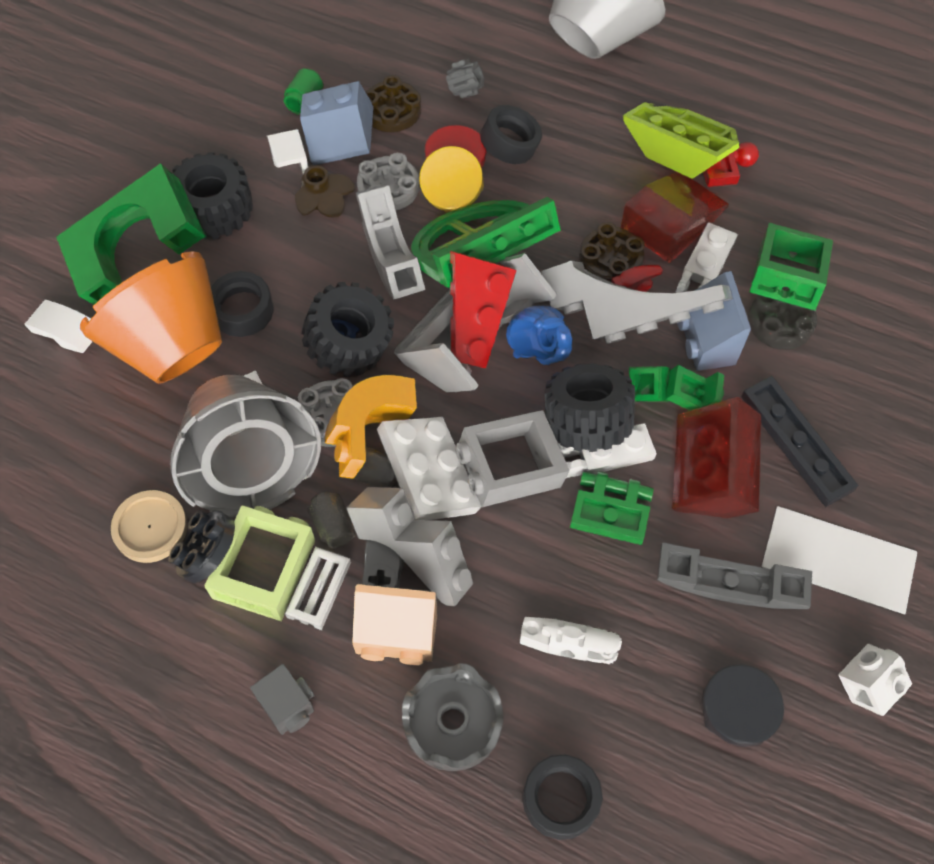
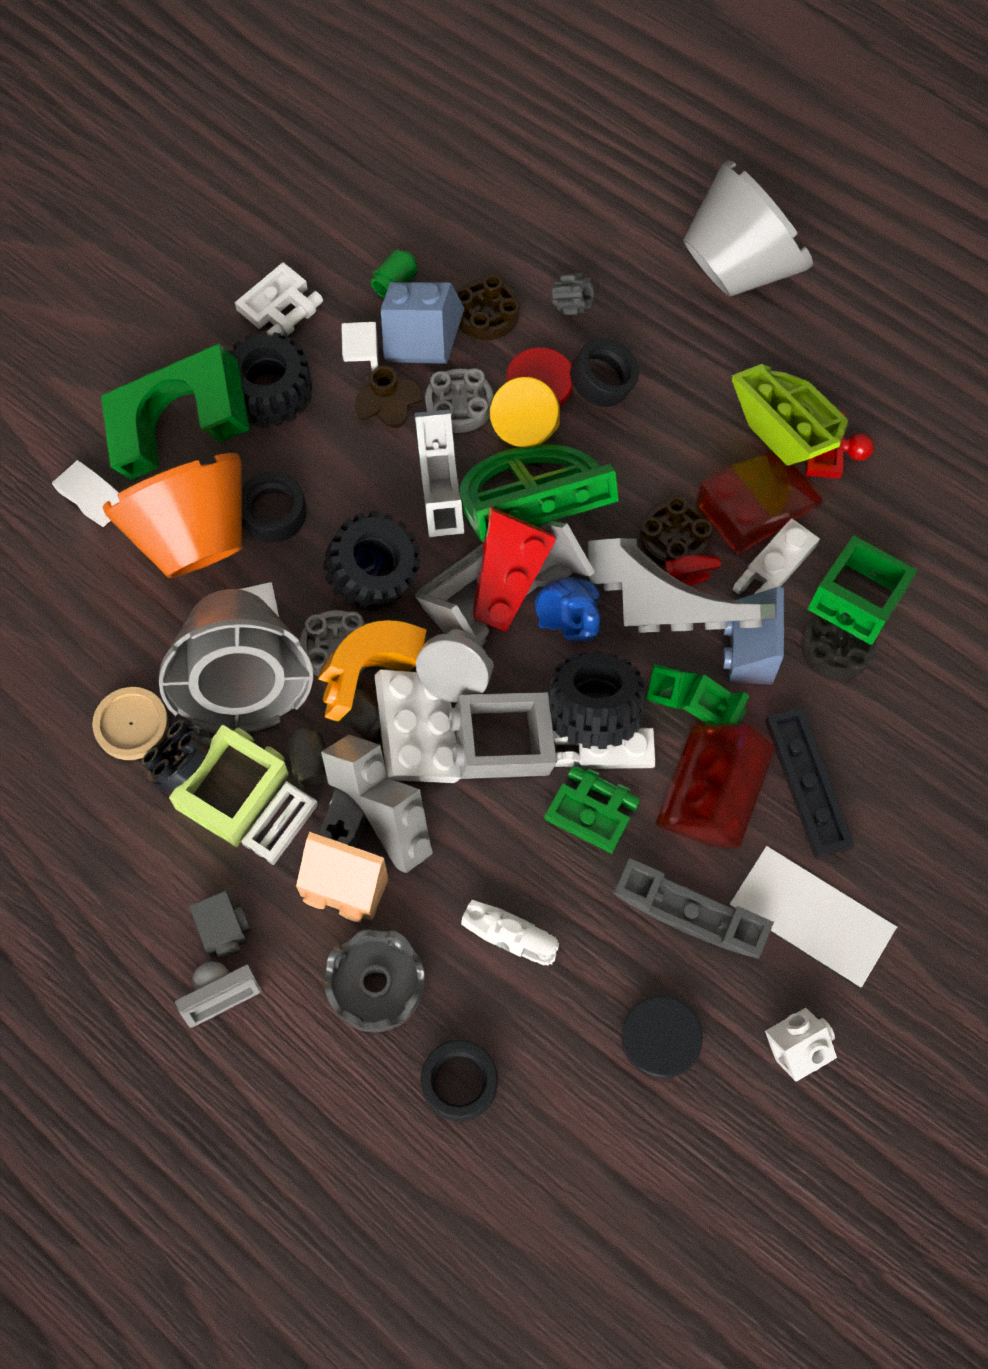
camera: 15 degrees right, 5 degrees up
(197, 128) = (272, 295): none -> white plate
(296, 767) = (216, 991): none -> light grey tile
(451, 402) = (453, 666): none -> tile

